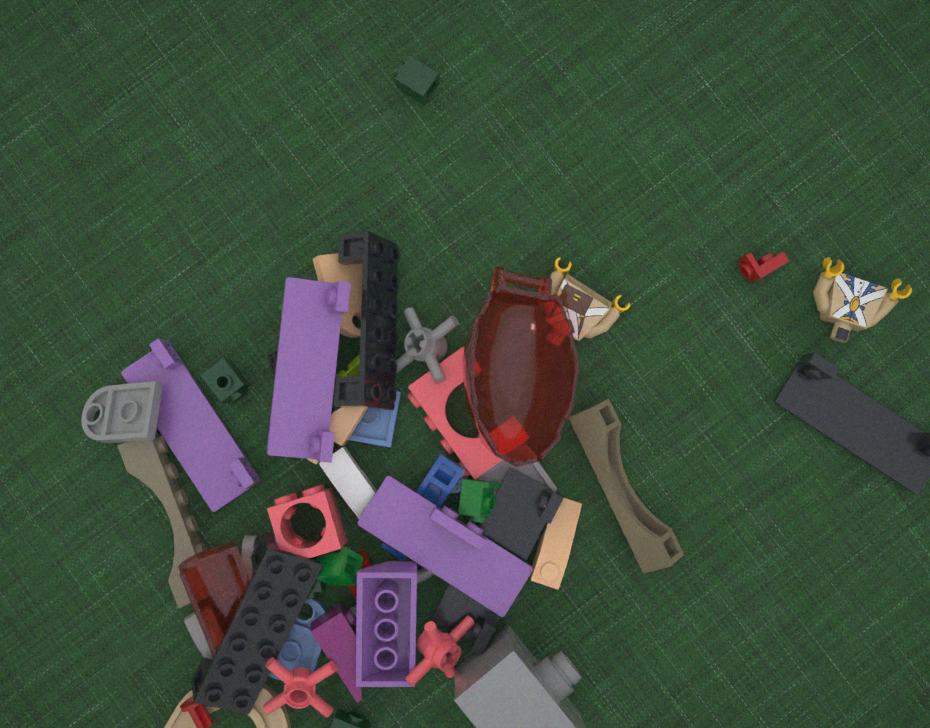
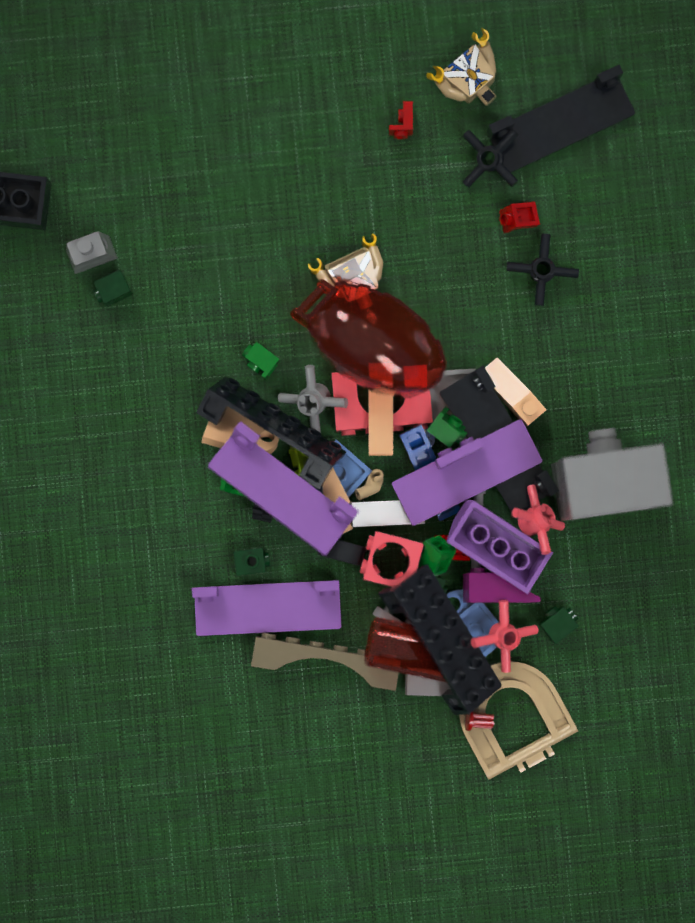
camera: 55 degrees left, 0 degrees up
(126, 412) = (229, 647): light grey tile -> none
(289, 474) = (346, 552): none -> black tyre
(375, 456) = (372, 485): none -> tan arm
(434, 268) = (260, 360): none -> green brick
(437, 32) = (90, 251): none -> light grey torso
(438, 429) = (380, 424): none -> light nougat slope
(648, 537) = (550, 323): dark tan arch -> none
(709, 500) = (542, 260): none -> black bar
(738, 439) = (519, 216): none -> red bracket
(781, 363) = (483, 151): none -> black bar

